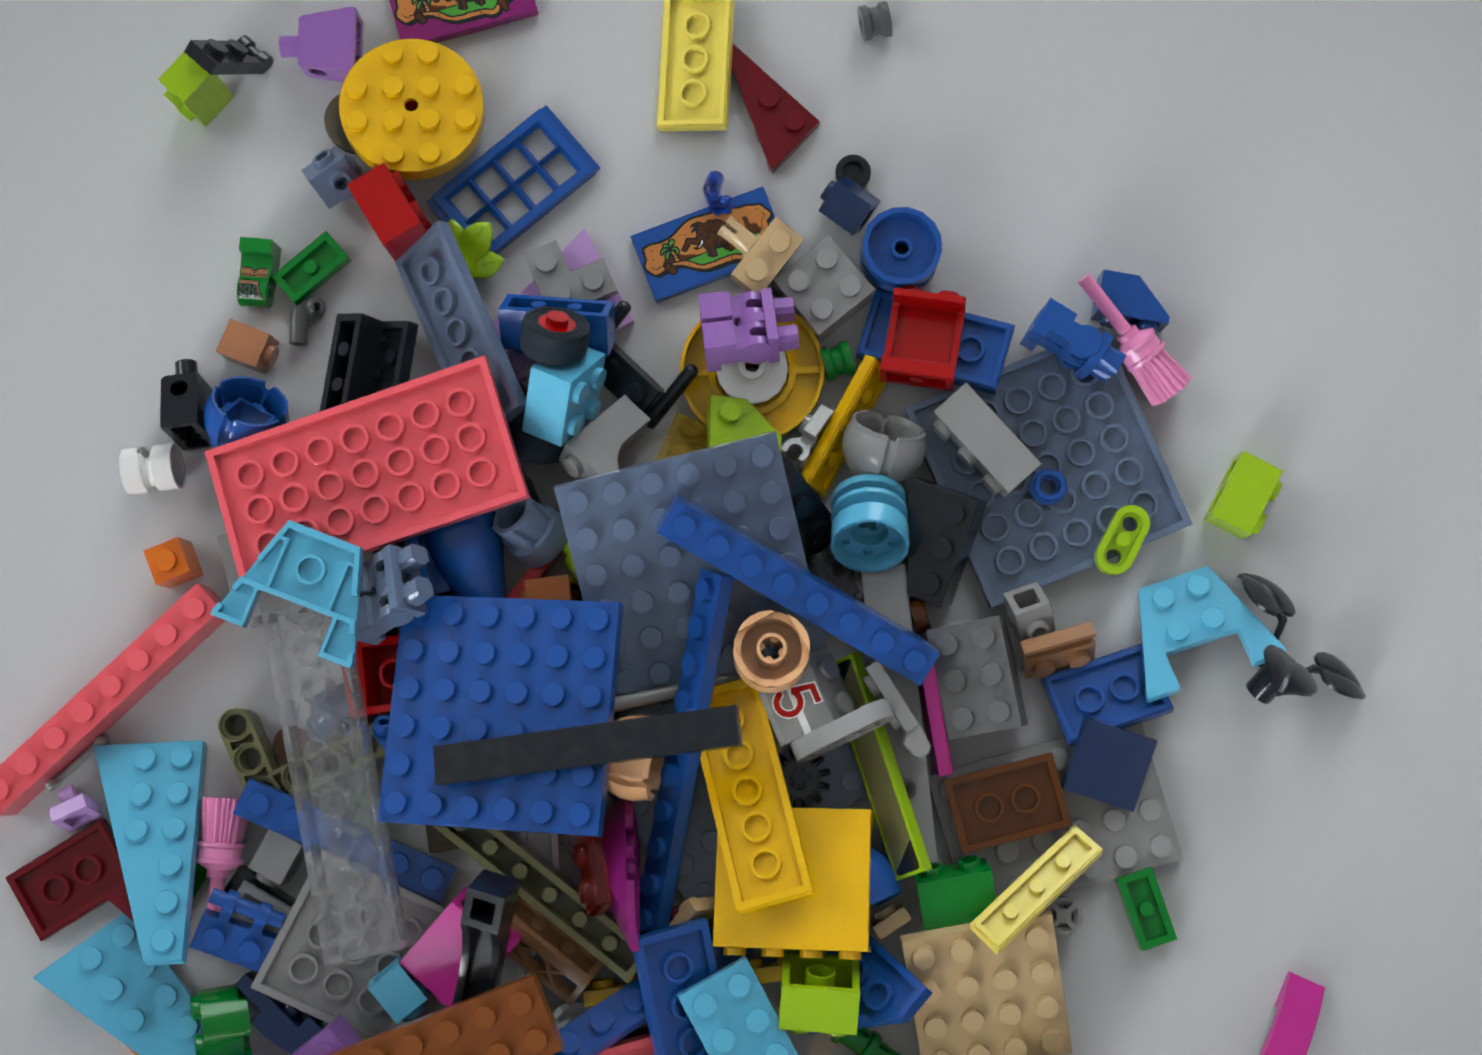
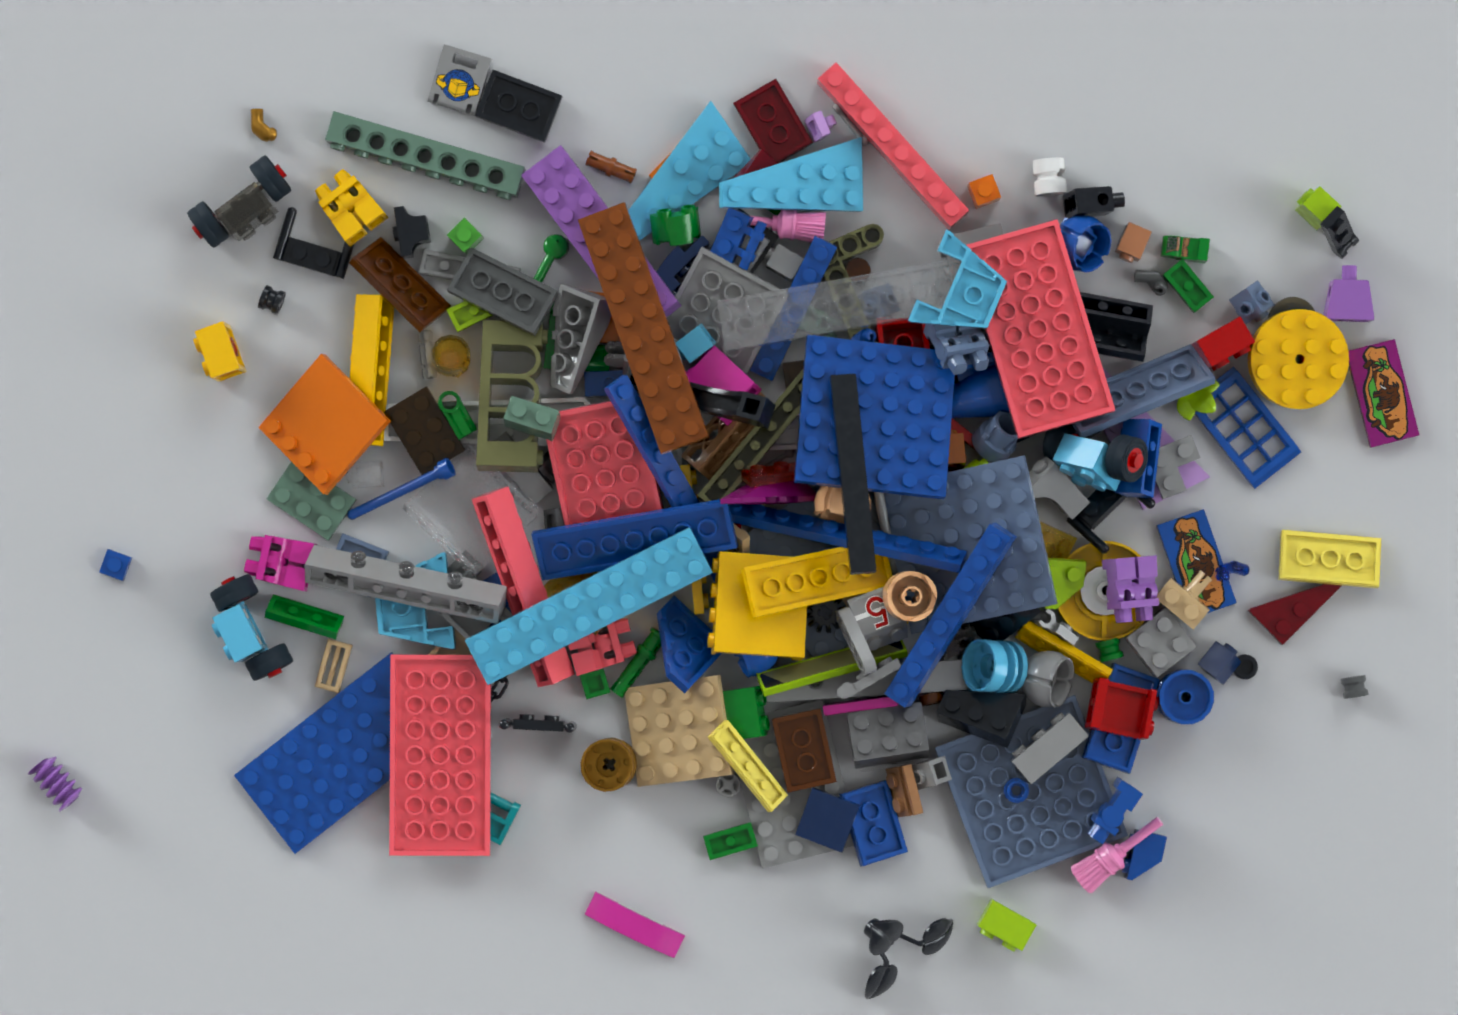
camera: 90 degrees right, 5 degrees up
(819, 995) = (685, 619): lime slope -> none
(890, 919) = (729, 669): tan plate -> none
(1121, 541) = (977, 838): lime plate -> none
(1188, 614) = (925, 879): medium azure wing -> none

